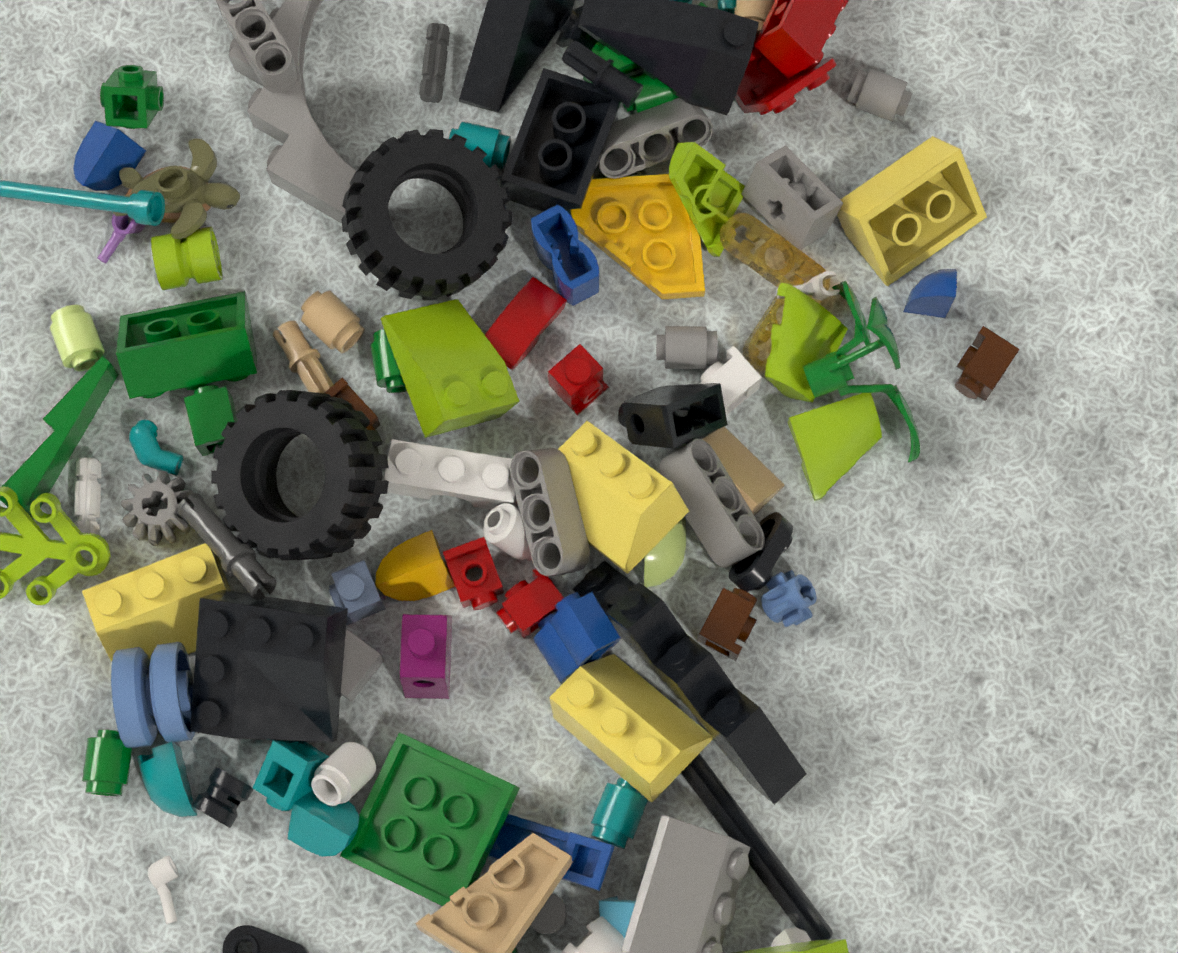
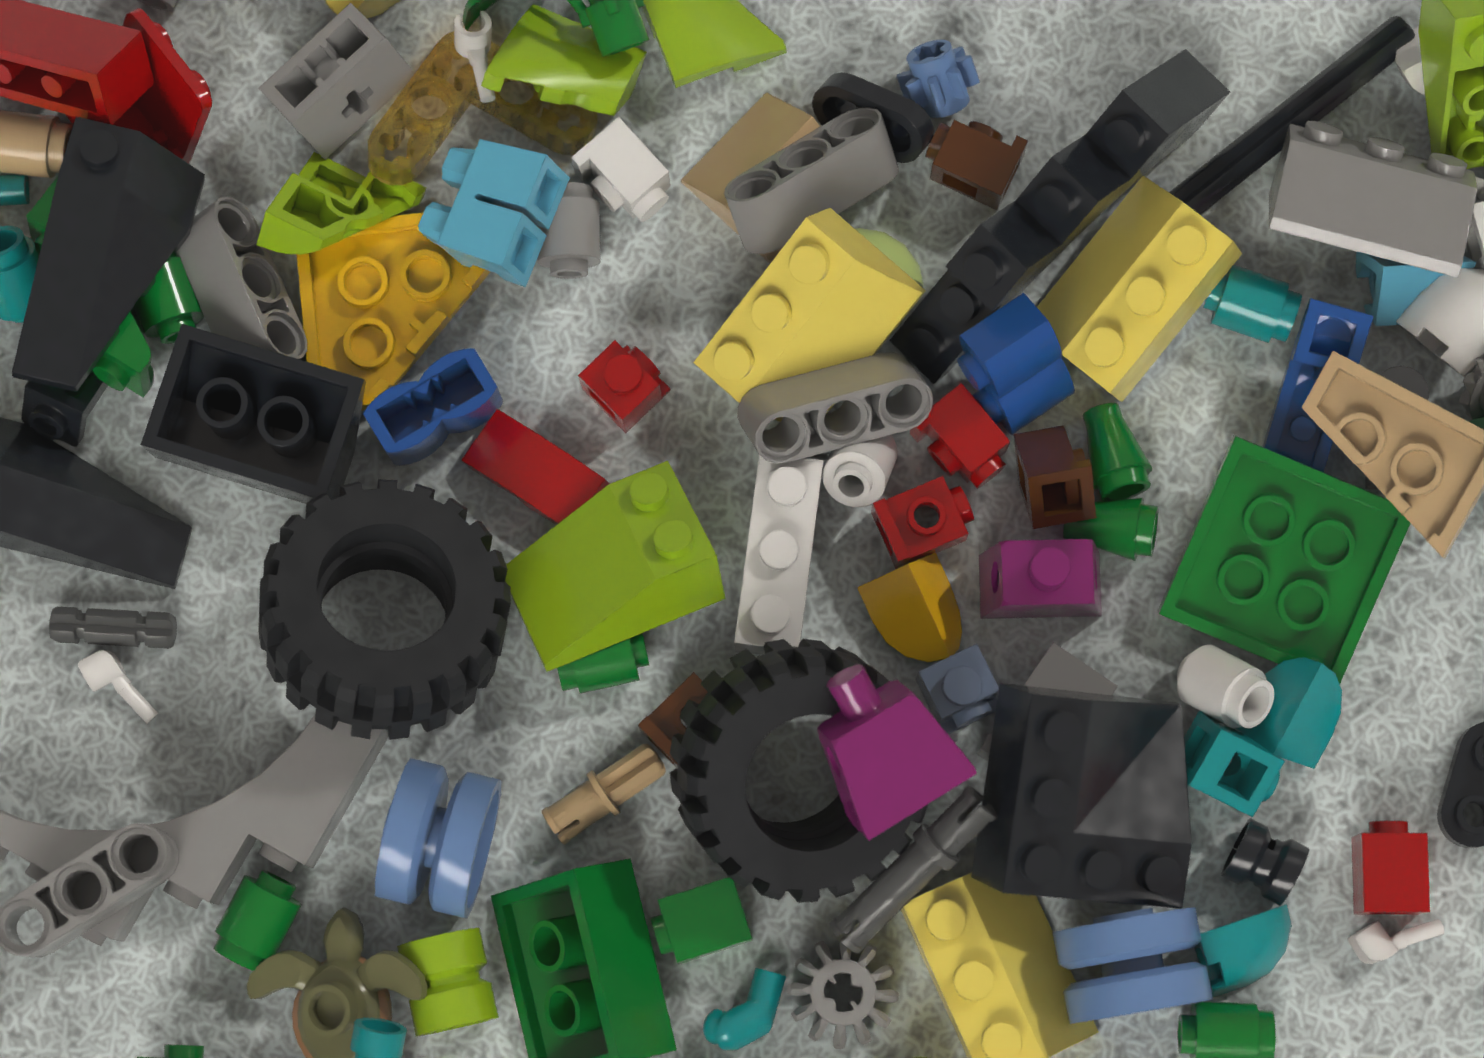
camera: 90 degrees left, 5 degrees up
(209, 884) = (1390, 870): none -> red brick
(238, 145) = (257, 919): none -> green brick
(276, 249) = (428, 836): none -> medium blue wheel
(295, 520) = (886, 752): none -> magenta torso
(331, 321) = (541, 754): tan brick -> none
(408, 59) = (105, 668): none -> white hand
(464, 707) = (1119, 528): none -> green cone
(488, 139) = (247, 544): teal brick -> none
(497, 661) = (1053, 478): none -> reddish brown brick
(513, 710) = (1116, 457): none -> green cone
(602, 73) = (156, 350): black axle -> none
(653, 418) = (681, 241): black torso -> none
(713, 289) = (497, 208): none -> medium azure hips

